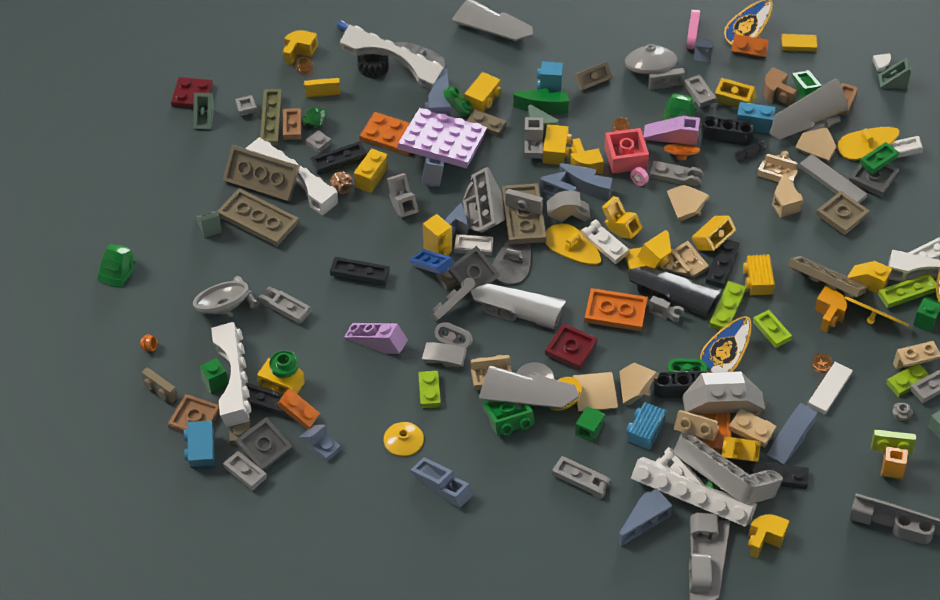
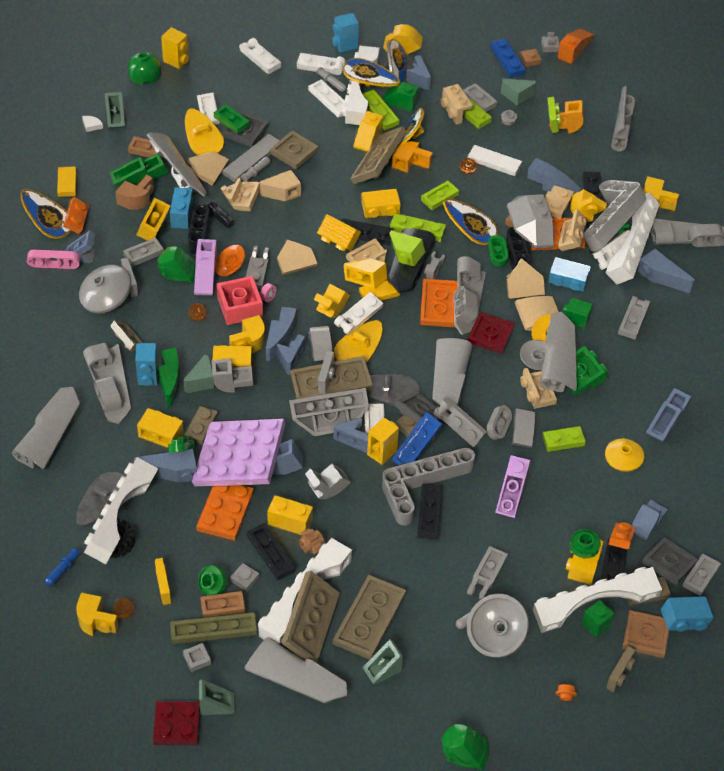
camera: 100 degrees left, 0 degrees up
(211, 165) = (293, 672): none -> light grey panel
(395, 248) = (401, 478): none -> light grey beam
(526, 63) = (109, 380): none -> light grey panel
(623, 332) = (468, 295): none -> light grey panel
(679, 276) = (407, 248): none -> lime slope
(811, 178) = (252, 171): none -> light grey piece

